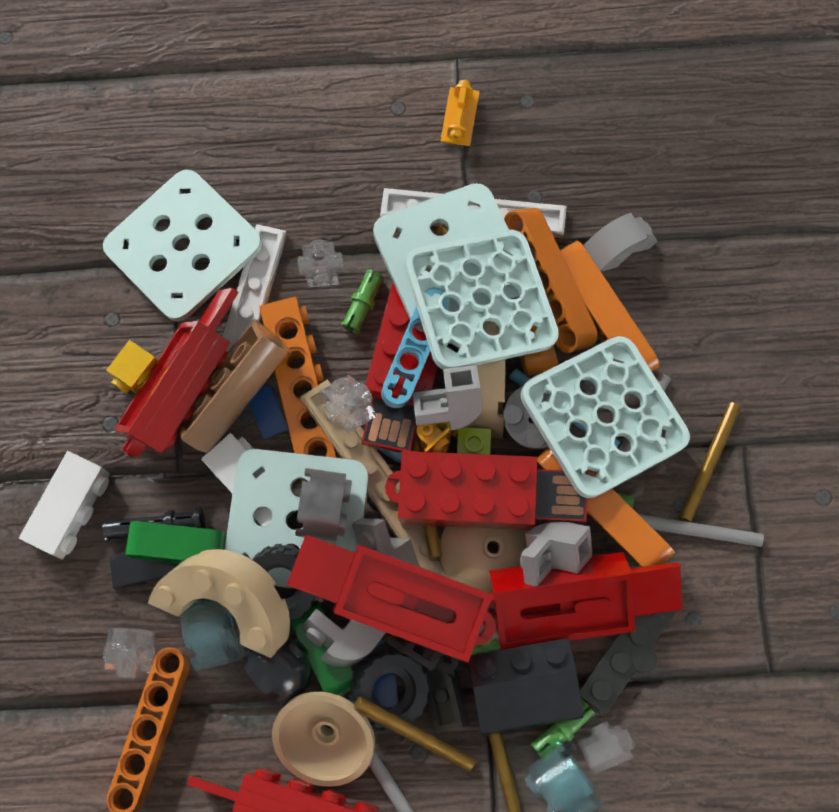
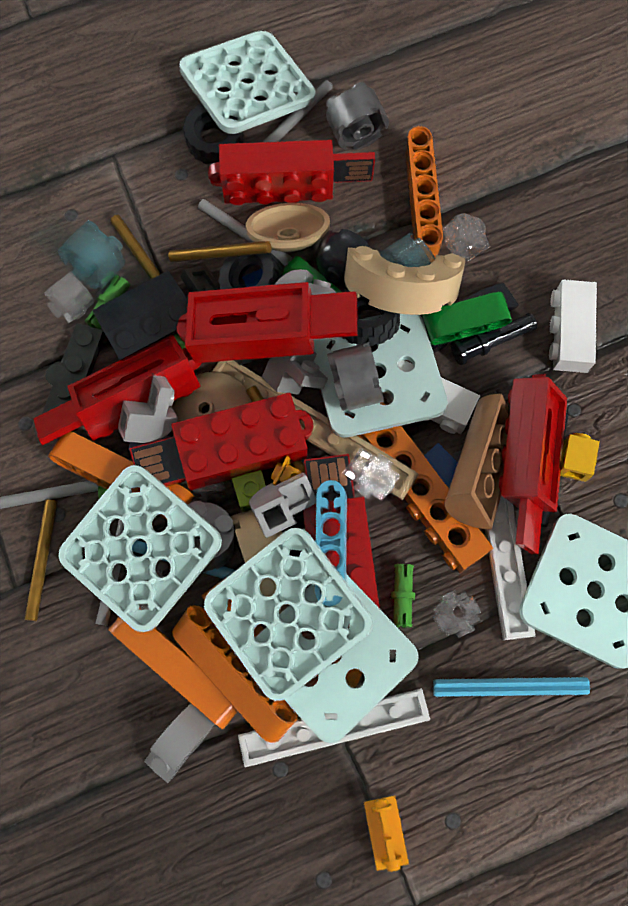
camera: 155 degrees right, 0 degrees up
(299, 191) = (511, 686): none -> medium azure axle

